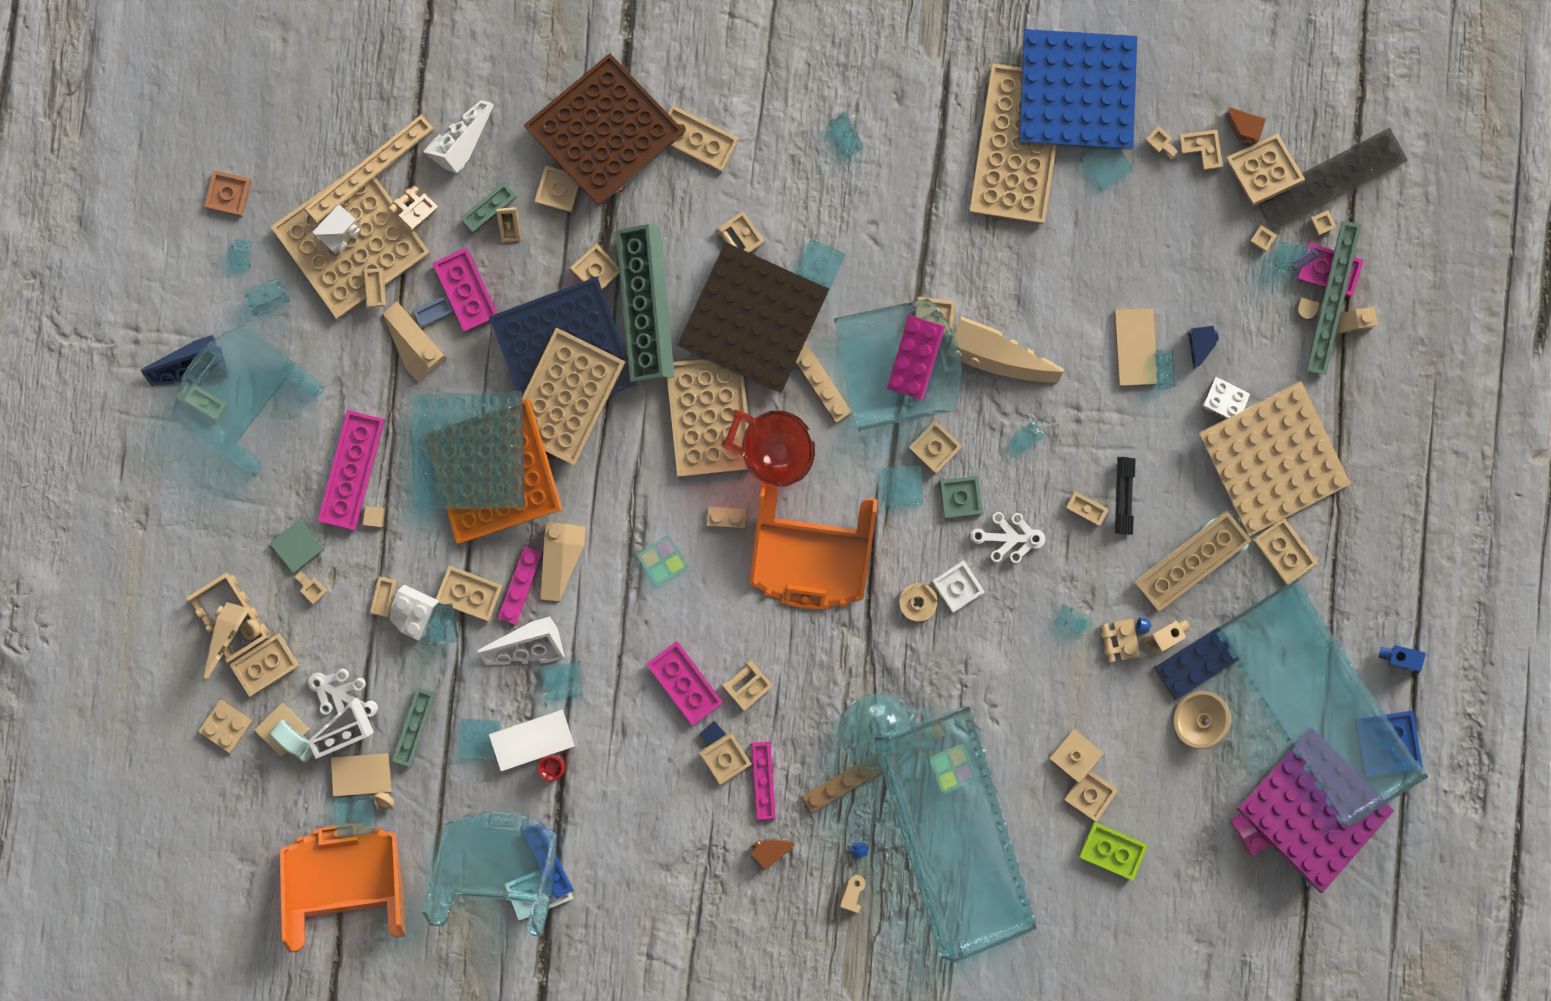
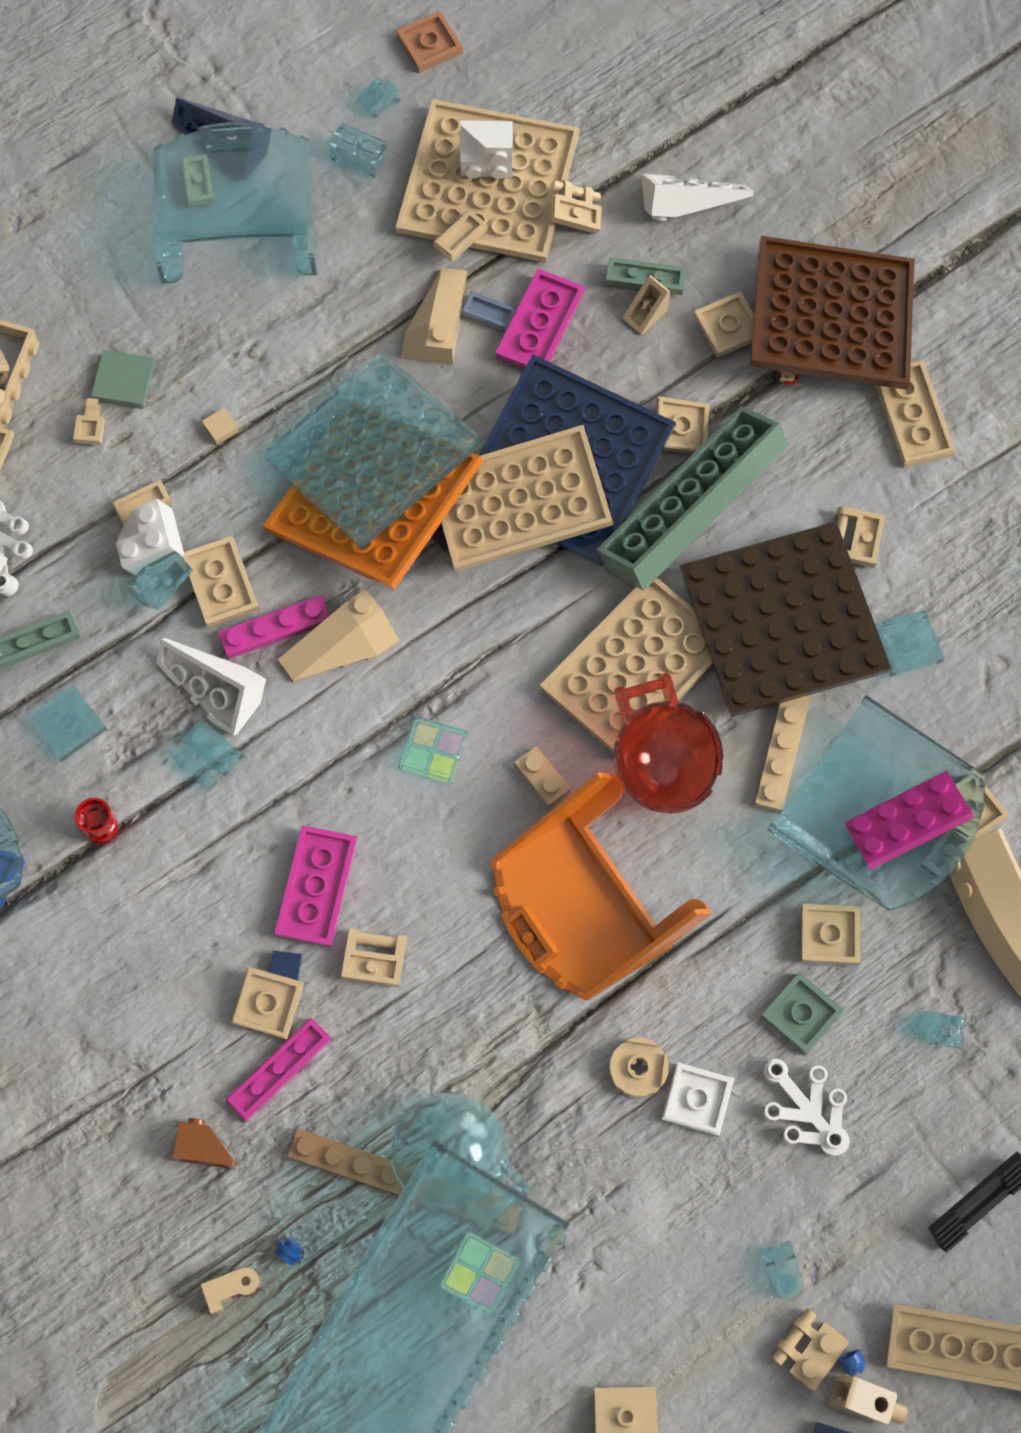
camera: 50 degrees right, 15 degrees down
(351, 470) = (250, 365): dark pink plate -> none
(369, 169) = (584, 138): tan tile -> none
(531, 740) = (112, 775): white tile -> none
(902, 485) = (754, 937): clear light blue plate -> none
(1087, 508) = (924, 1170): tan plate -> none

